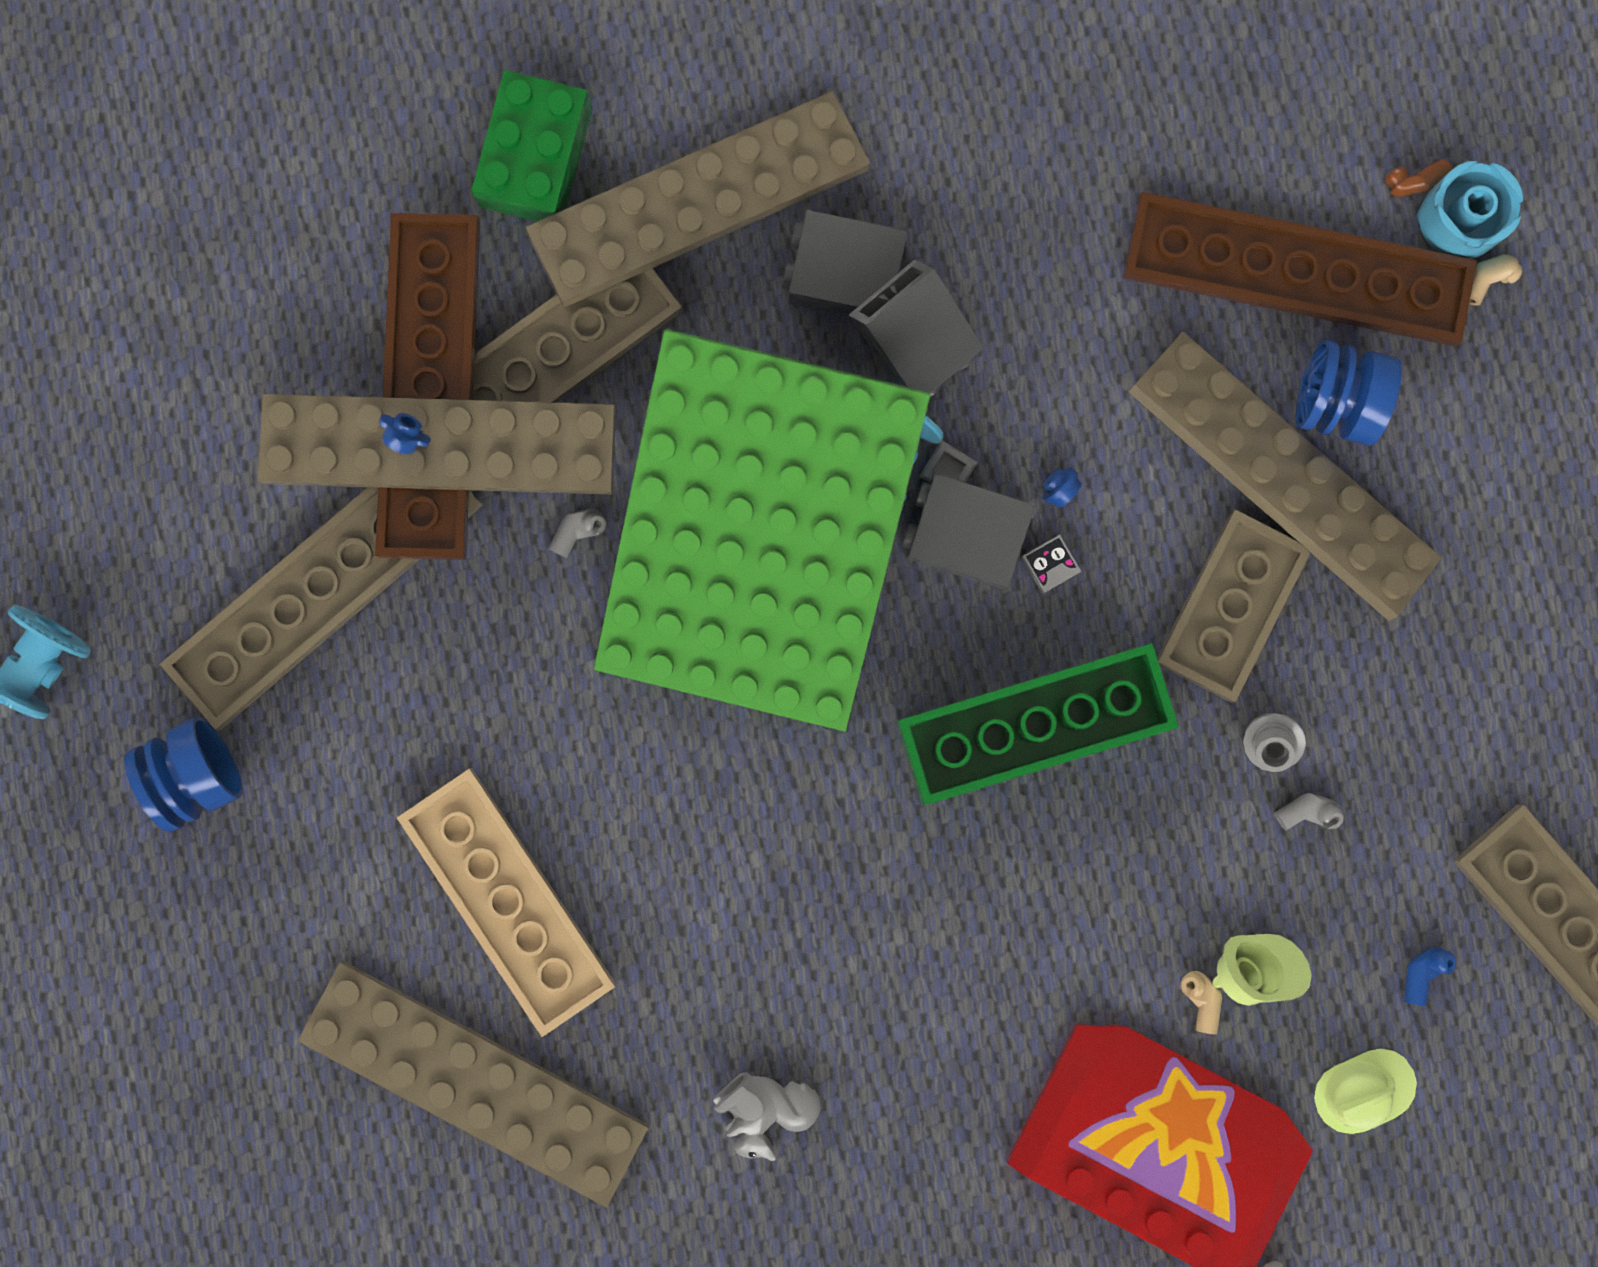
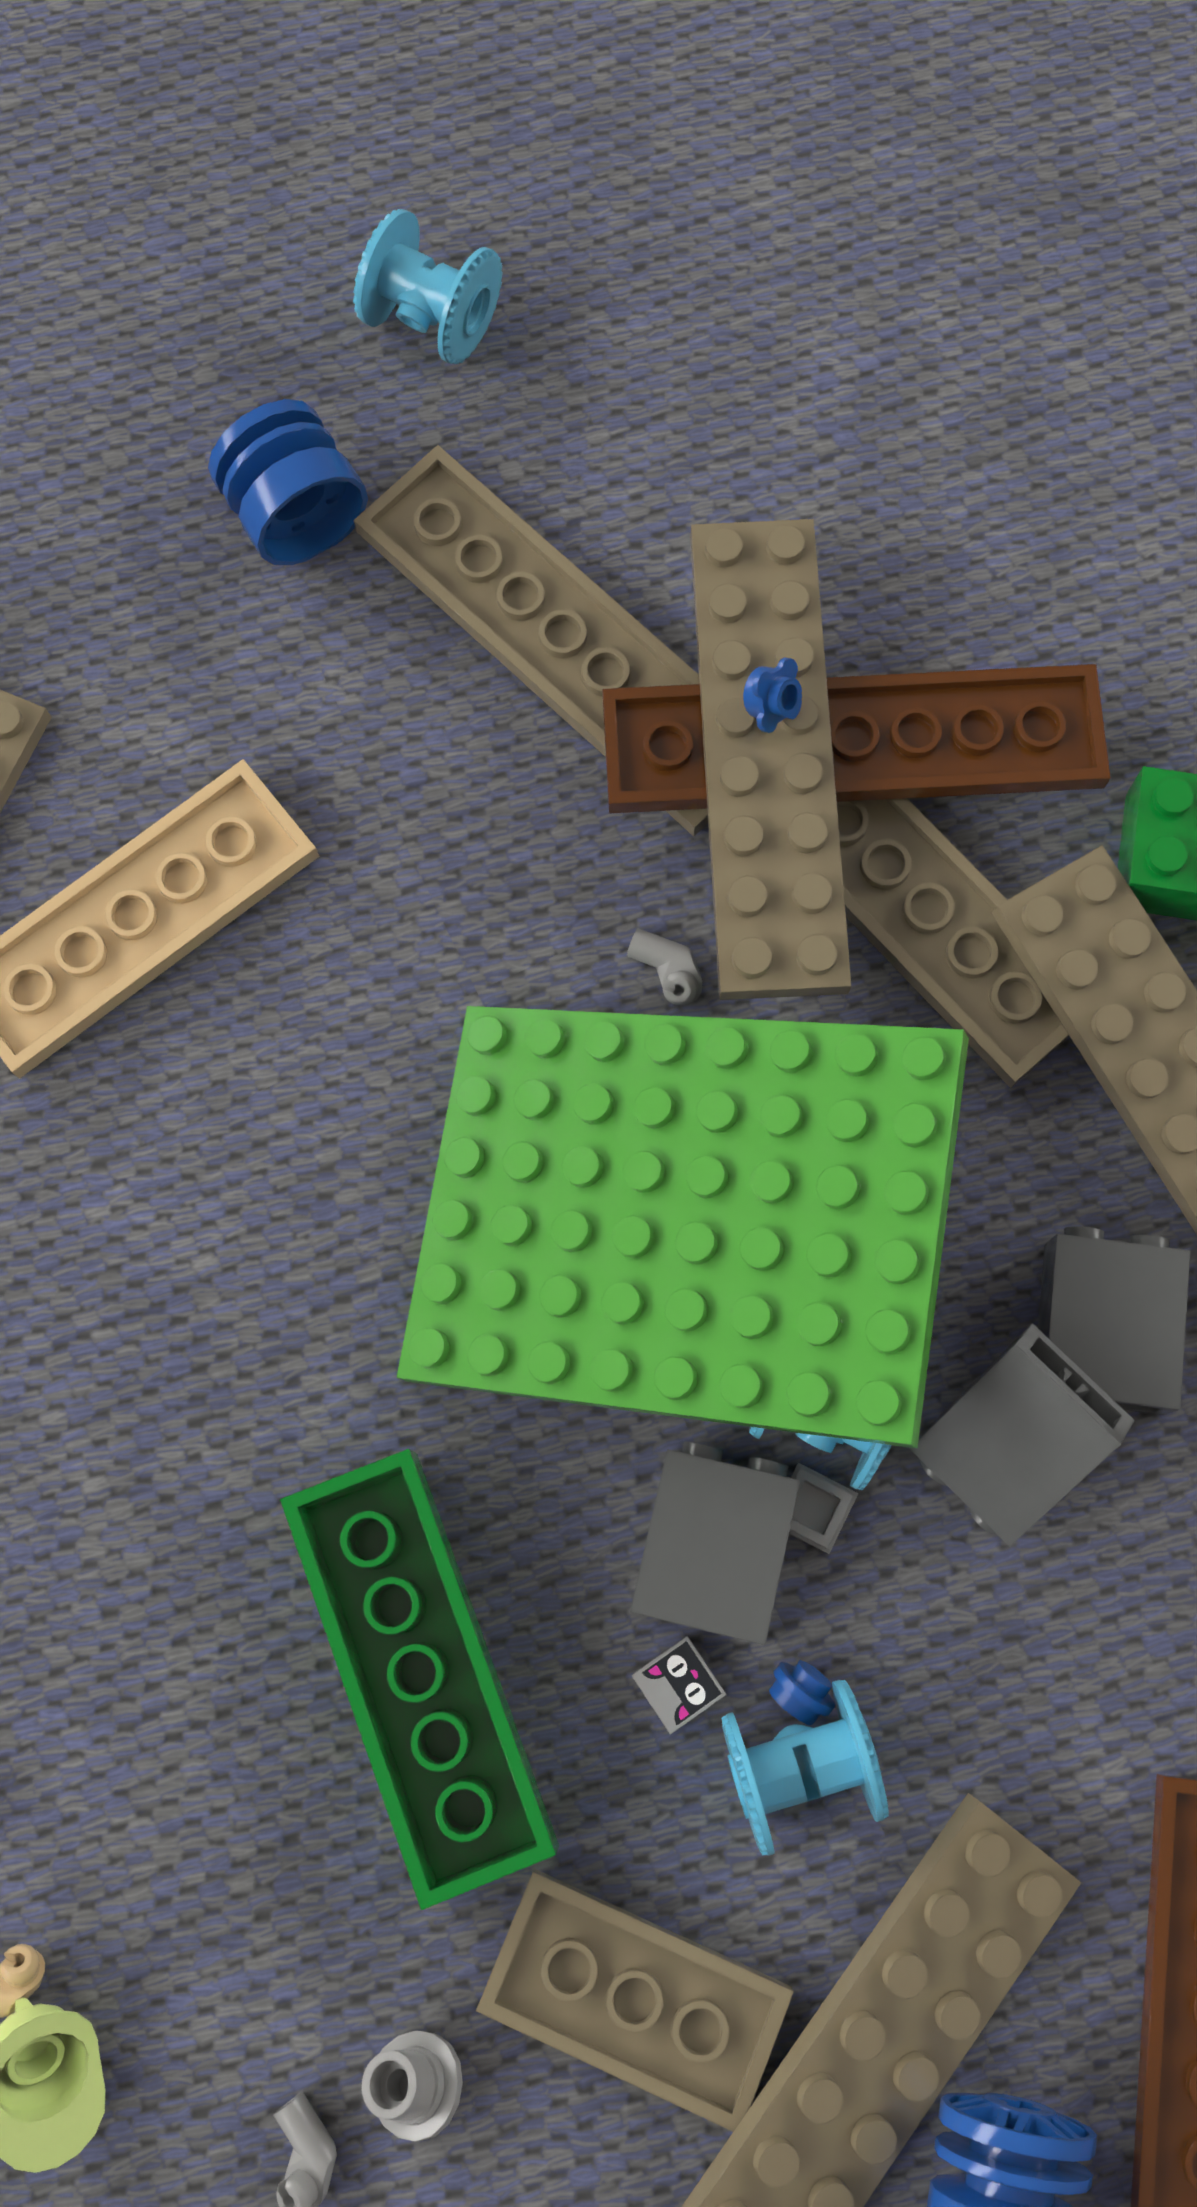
camera: 90 degrees right, 10 degrees down
(1107, 487) = (805, 1765): none -> medium azure hose

